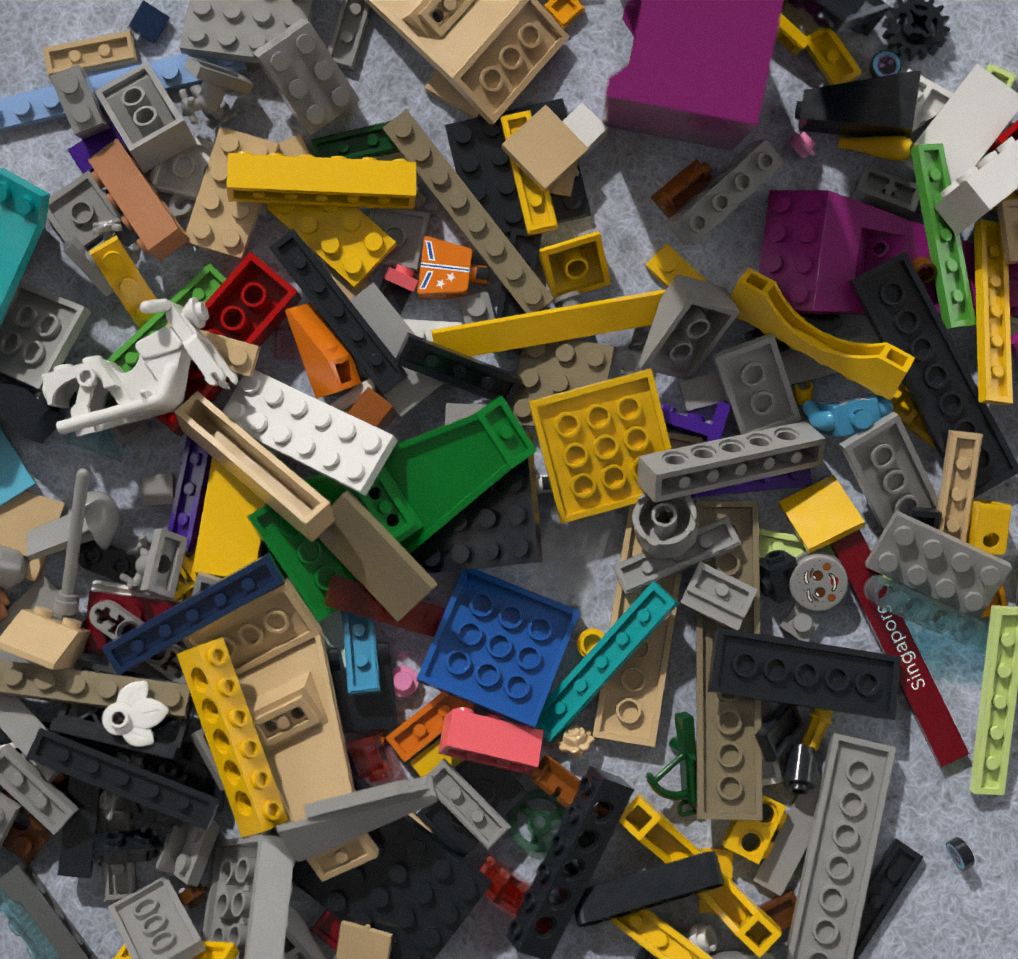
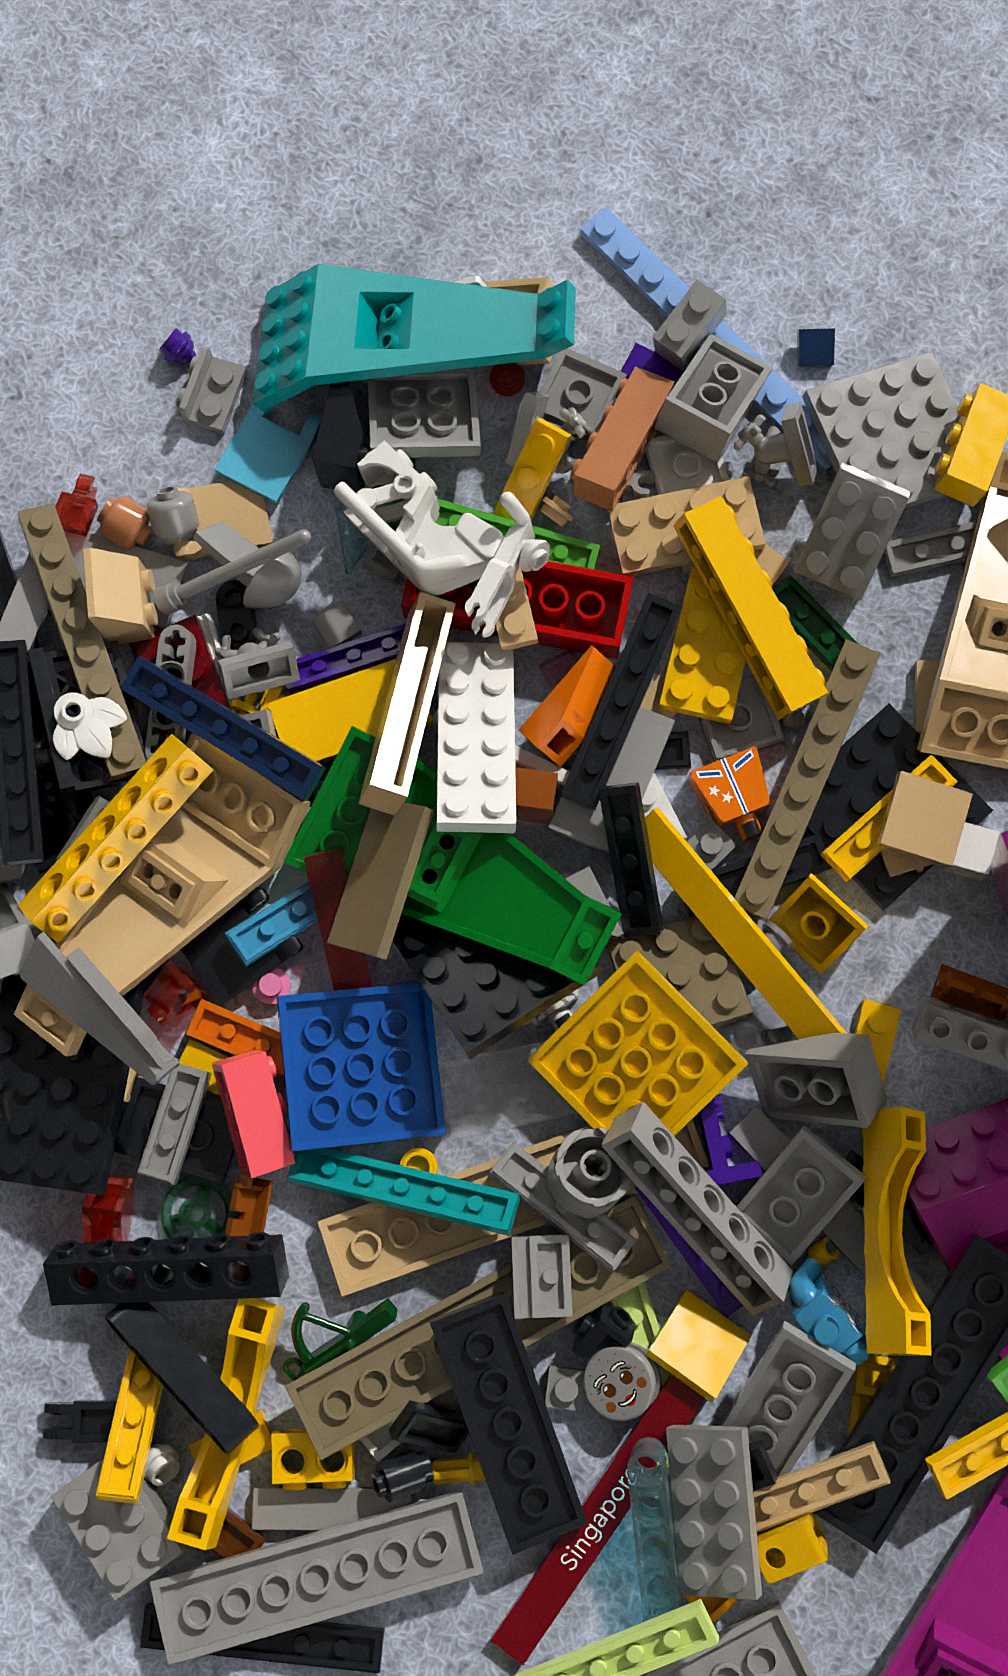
camera: 65 degrees right, 5 degrees down
(41, 260) = (507, 379): none -> clear red plate
(92, 53) = (750, 312): tan tile -> none
(164, 279) = (557, 510): none -> tan plate
(401, 276) = (698, 747): coral plate -> none
(575, 741) = (303, 1205): tan plant -> none

